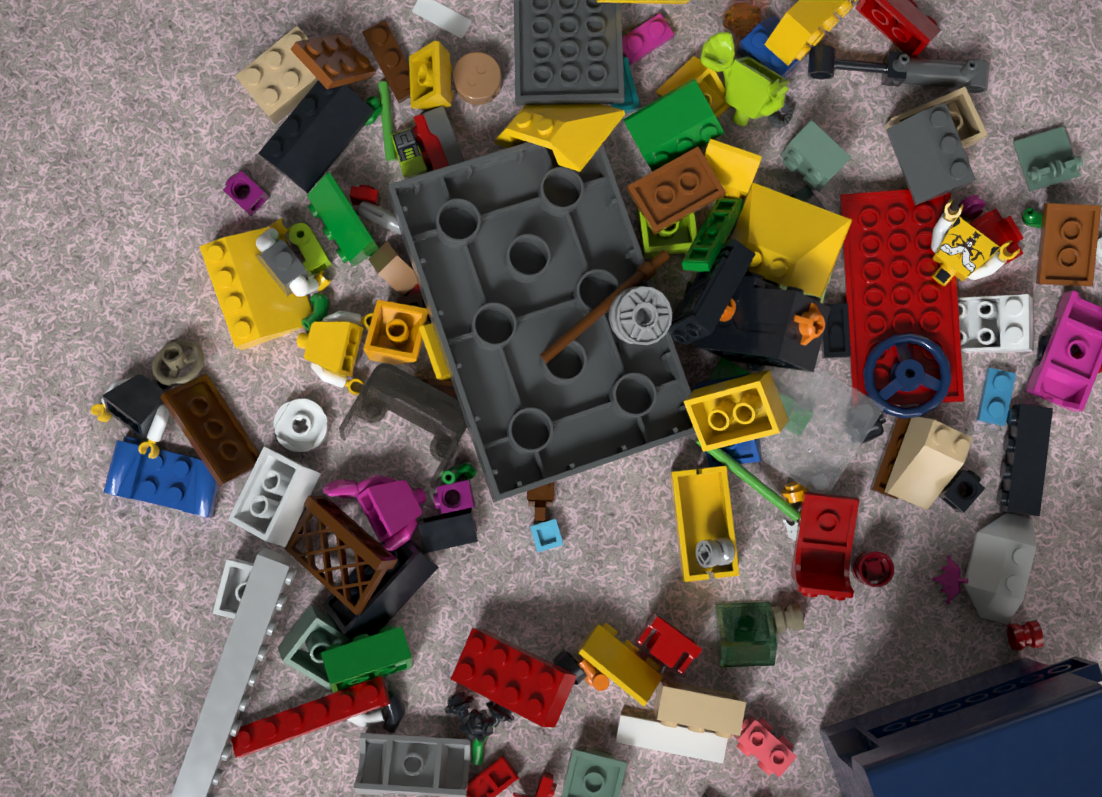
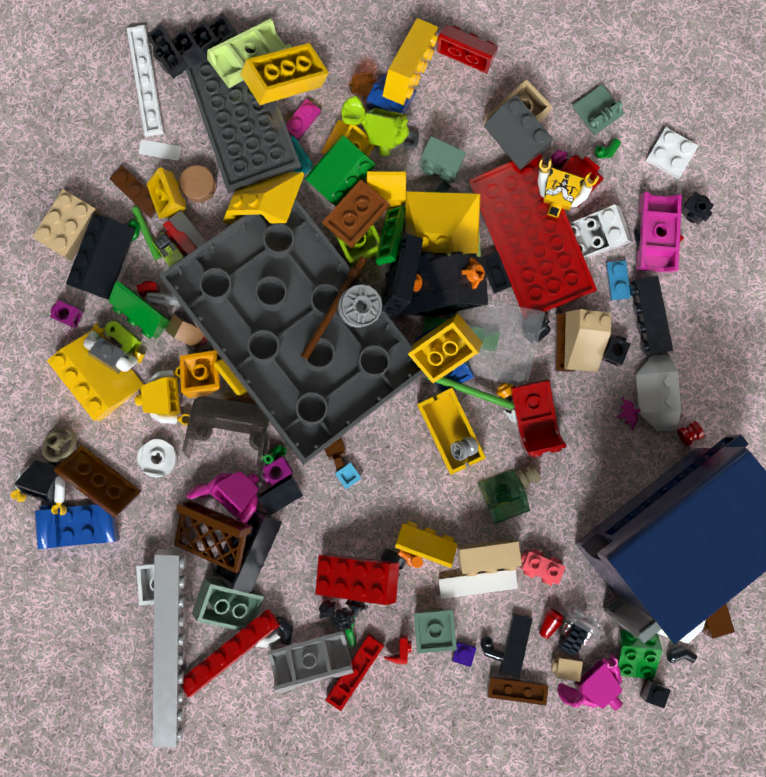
camera: 15 degrees left, 0 degrees up
(274, 497) = (155, 512): white slope -> none
(321, 308) = (144, 376): green arm -> none
(333, 60) = (95, 204): dark orange plate -> none
(367, 658) = (253, 600): green slope -> none
(668, 643) = (454, 520): red panel -> none
(872, 568) = (574, 423): dark red wheel -> none
(902, 69) = (480, 82): piece -> none
(907, 374) = (553, 285): dark blue piece -> none
(1068, 244) = (631, 162): dark orange plate -> none

